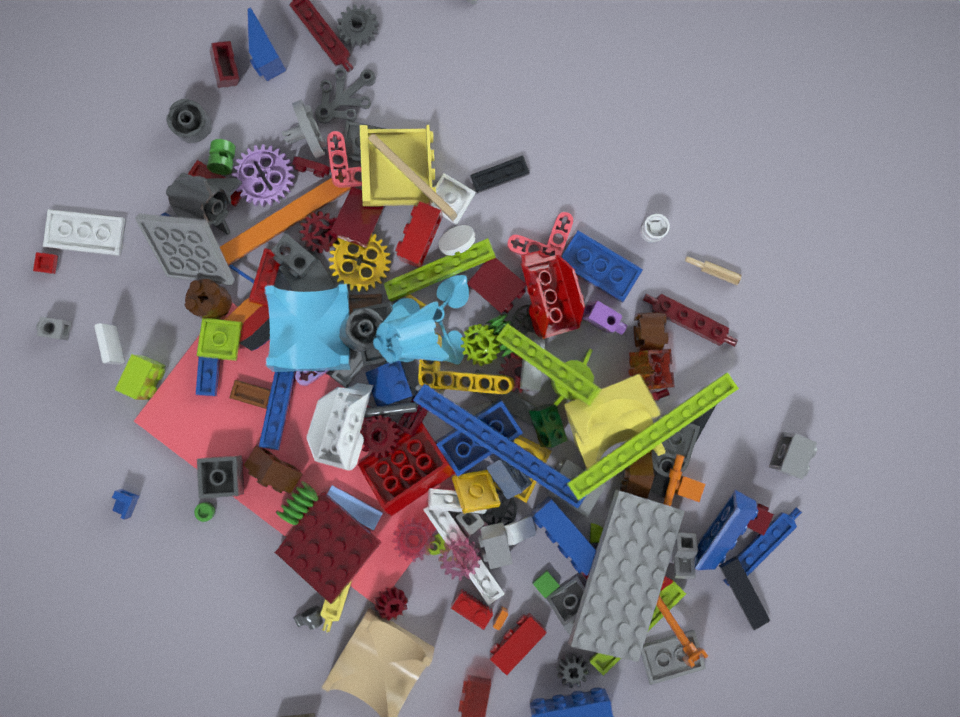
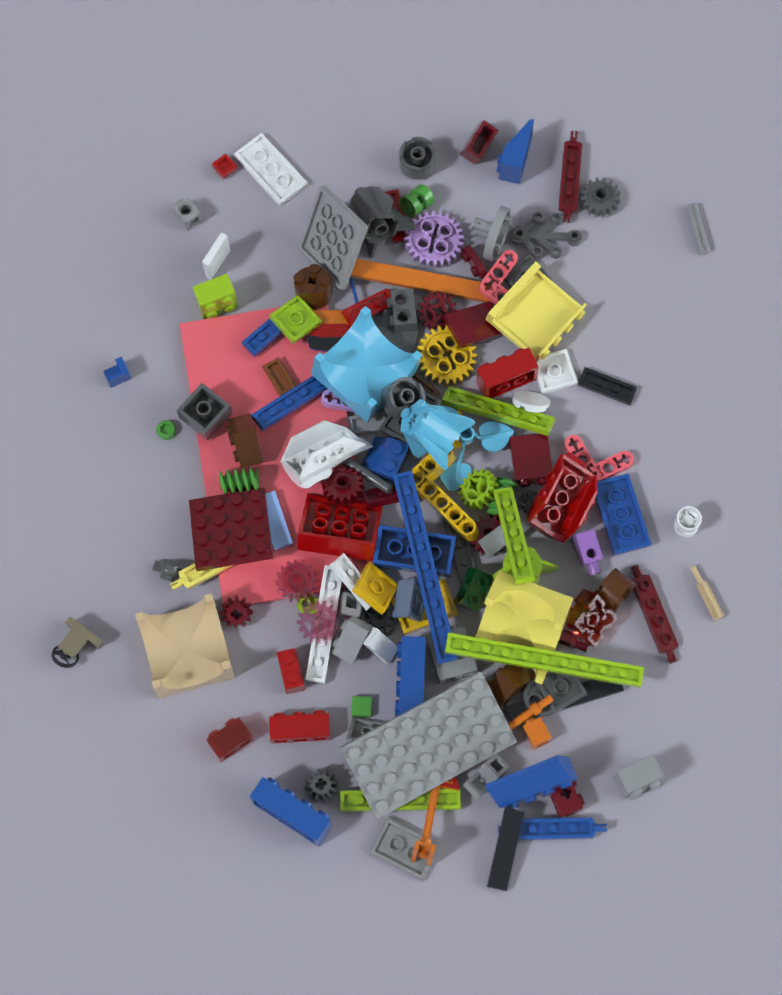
camera: 45 degrees right, 15 degrees down
(413, 177) = (540, 328): tan tile -> none
(500, 618) = (304, 698): orange tile -> none

